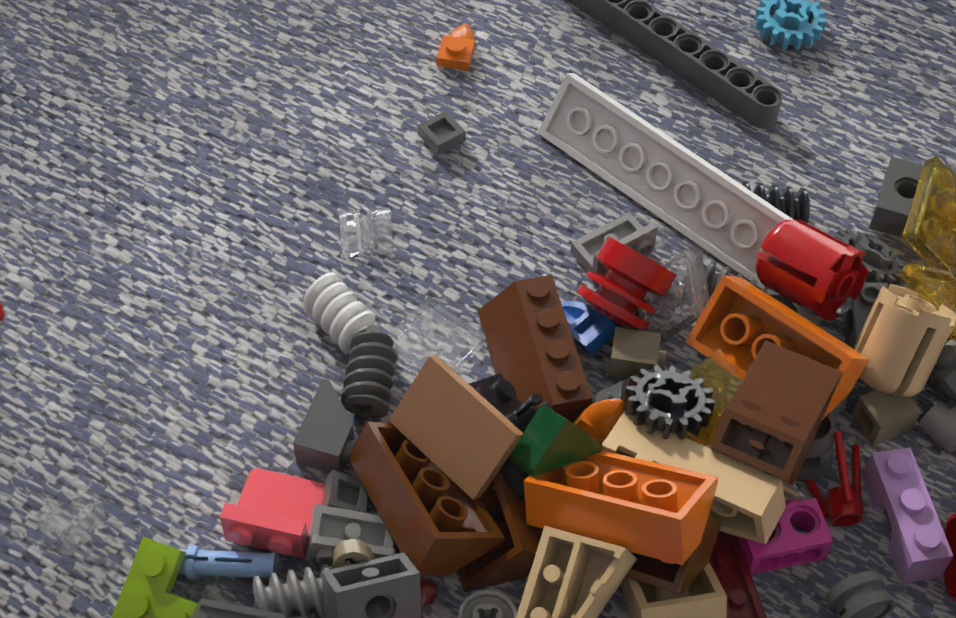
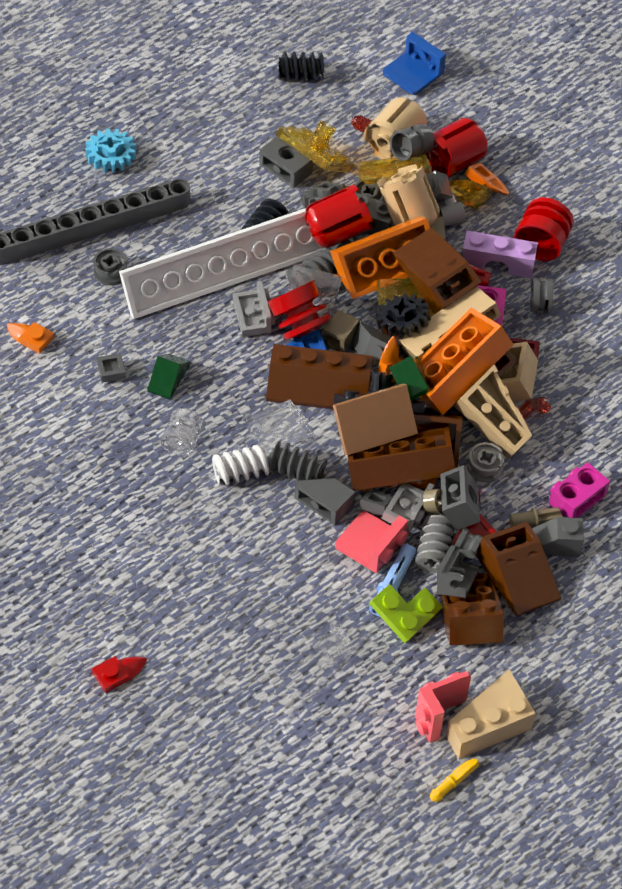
camera: 70 degrees left, 0 degrees up
(464, 191) = (167, 375): none -> dark green slope
(605, 74) = (107, 266): none -> dark grey wheel

